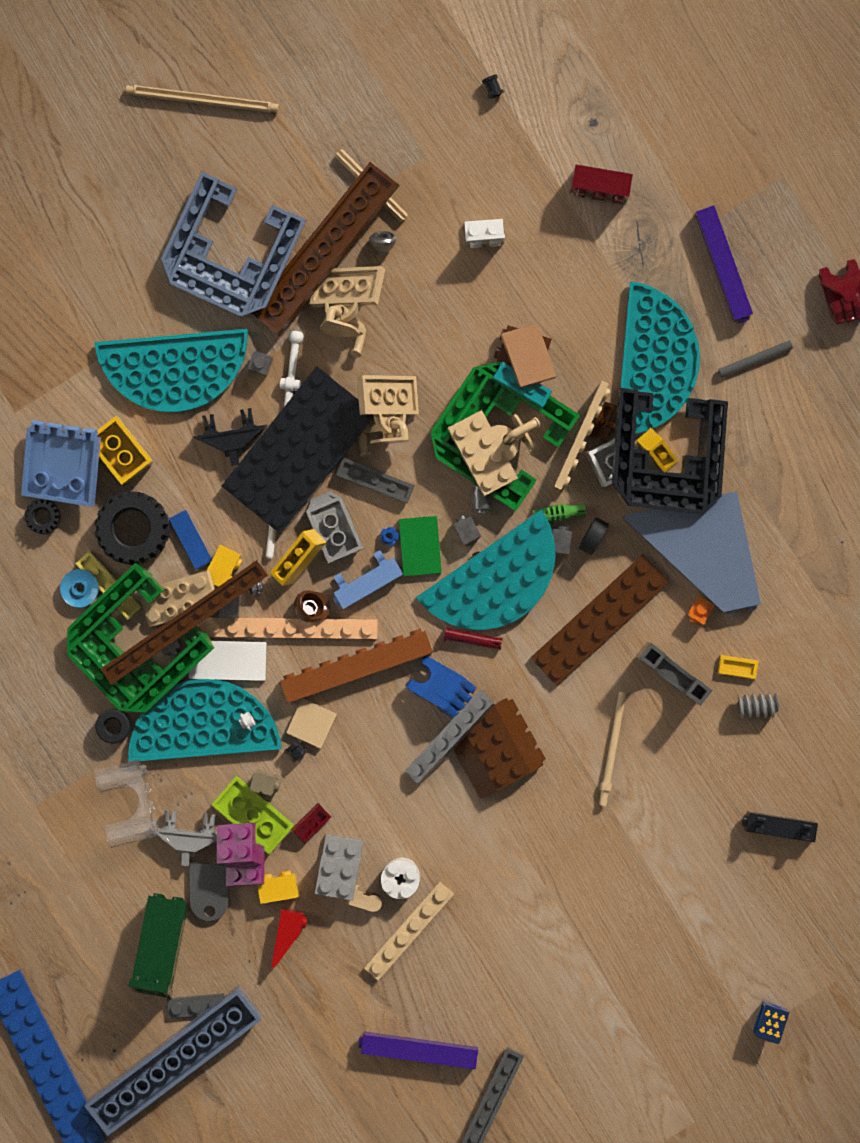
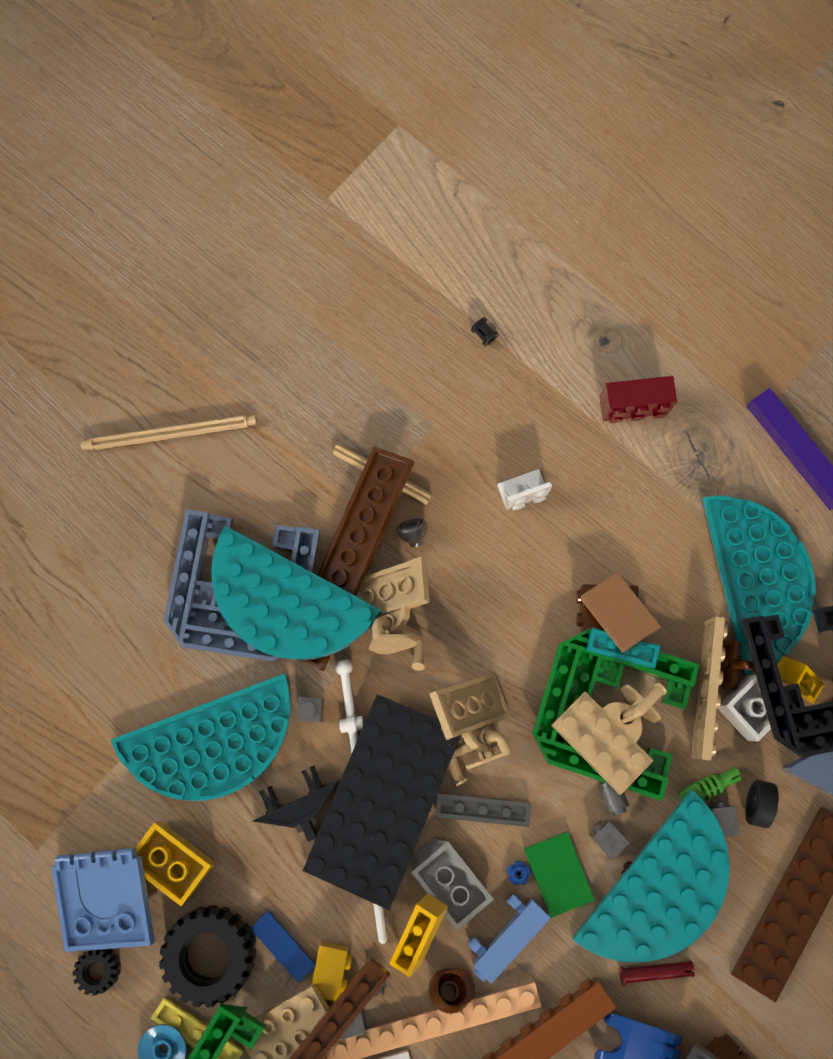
camera: 15 degrees left, 10 degrees down
(259, 271) = (282, 604): none -> teal plate

